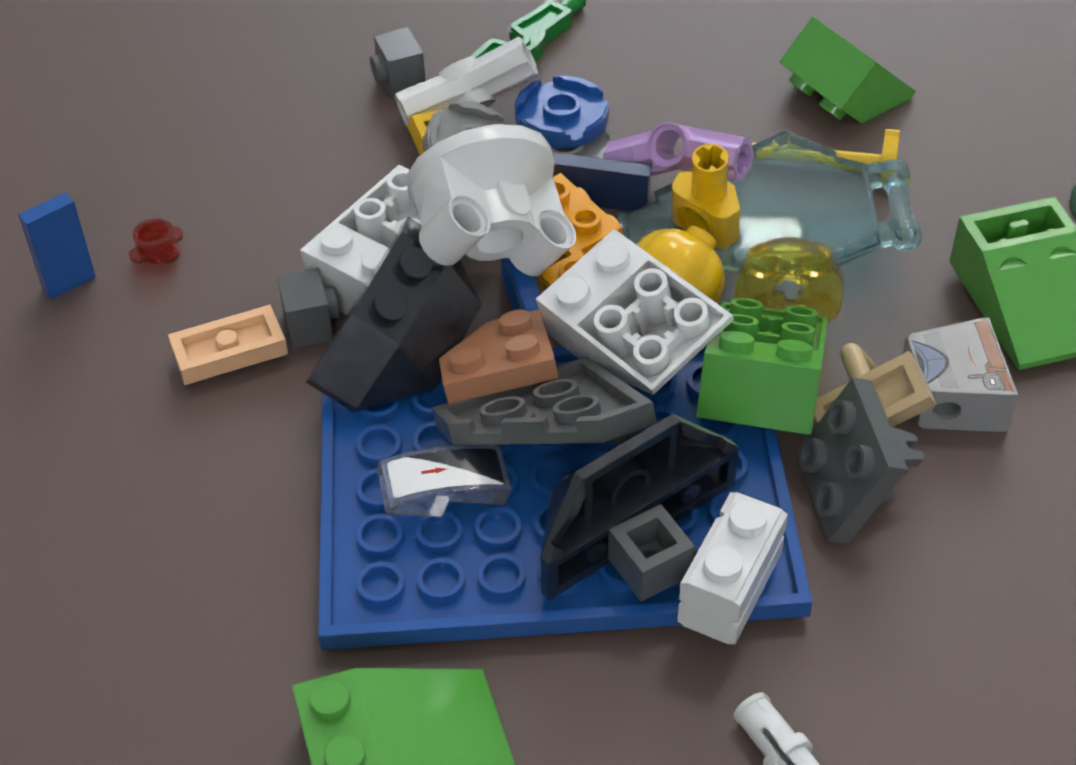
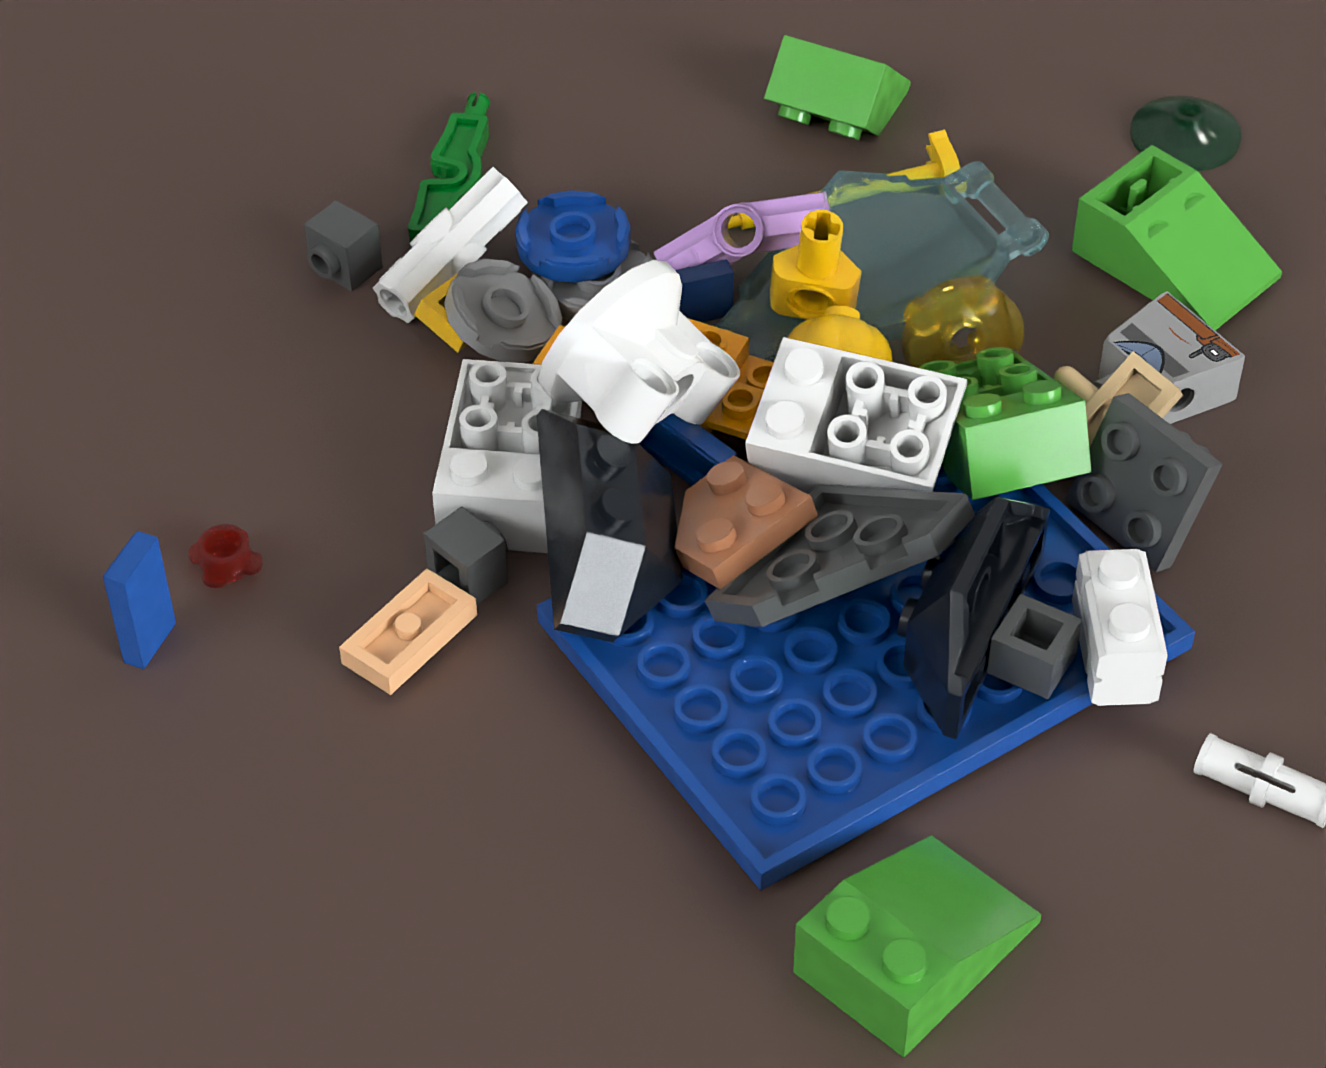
camera: 30 degrees left, 0 degrees up
(430, 478) = (767, 666): slope -> none

